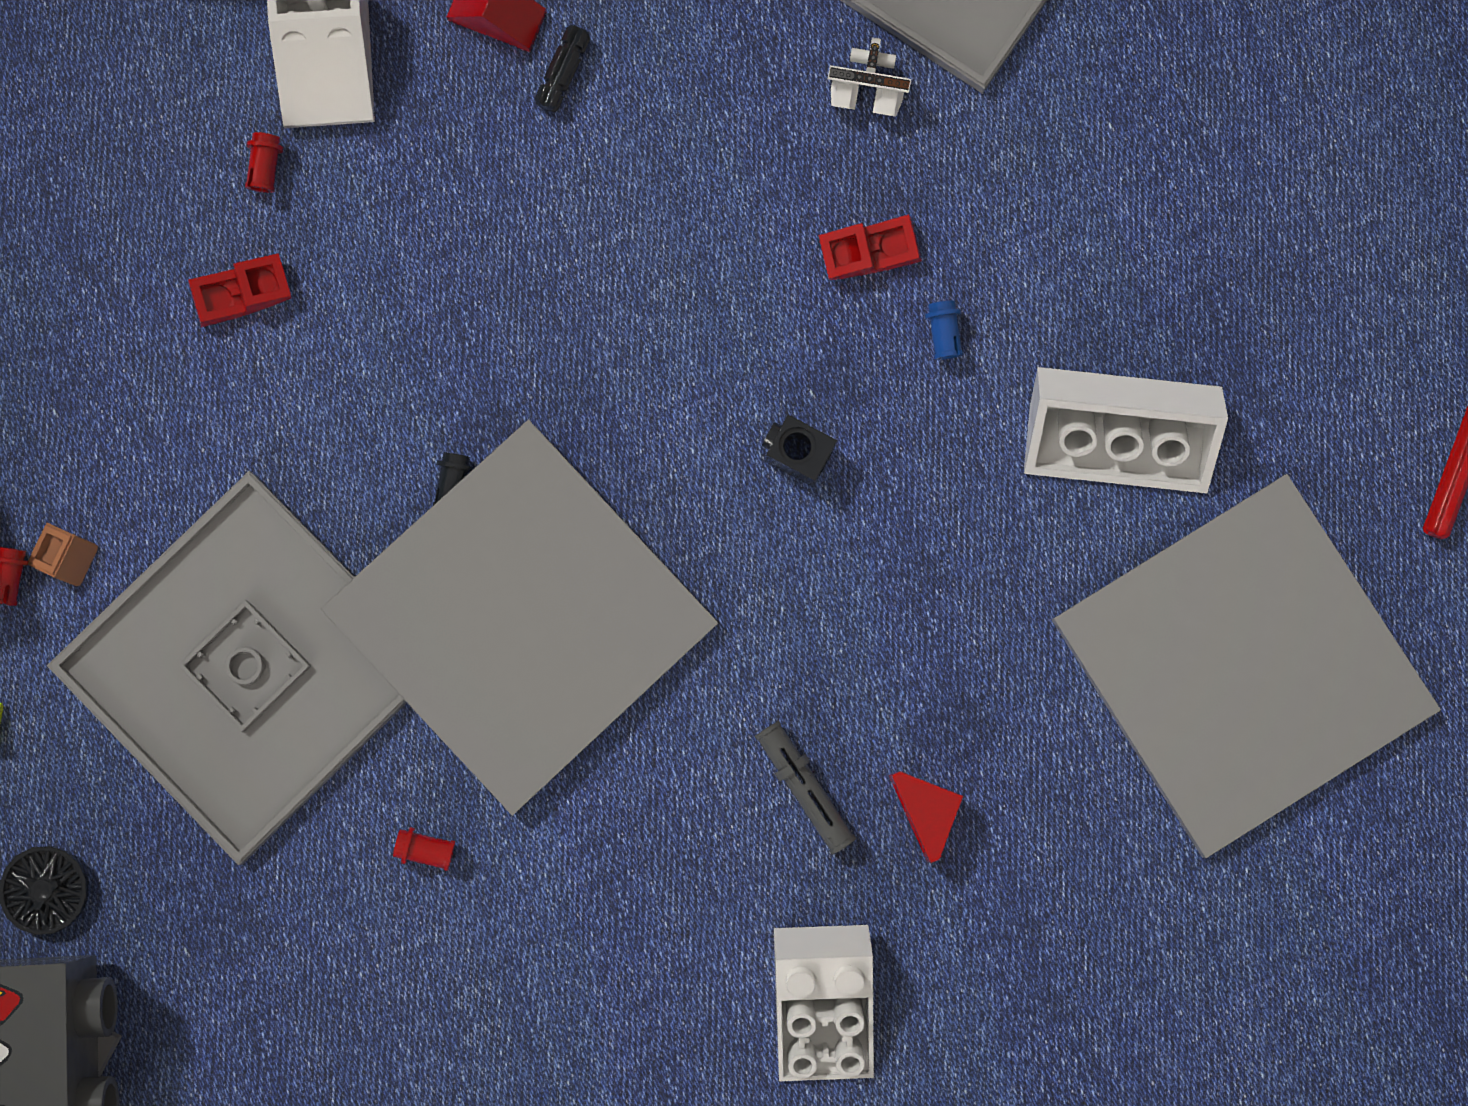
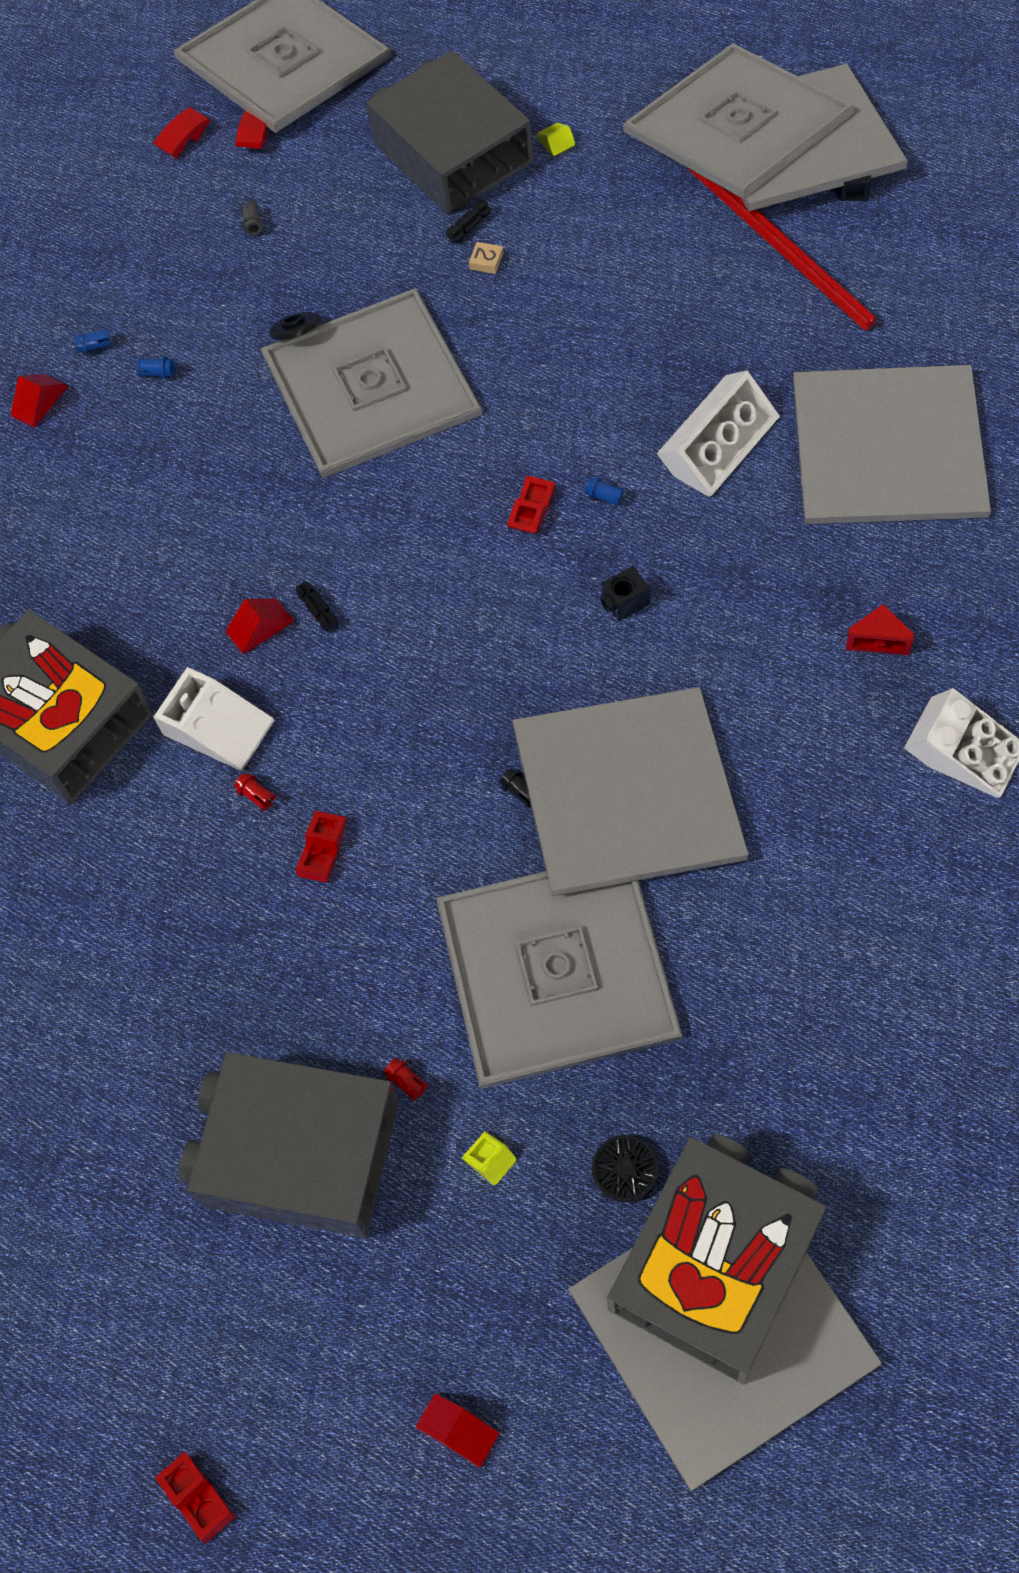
camera: 50 degrees left, 20 degrees down
(62, 555) = (413, 1040): nougat slope -> none
(423, 849) = (738, 919): red pin -> none
(837, 833) = (827, 690): dark grey pin -> none
(847, 81) = (430, 466): white hips -> none

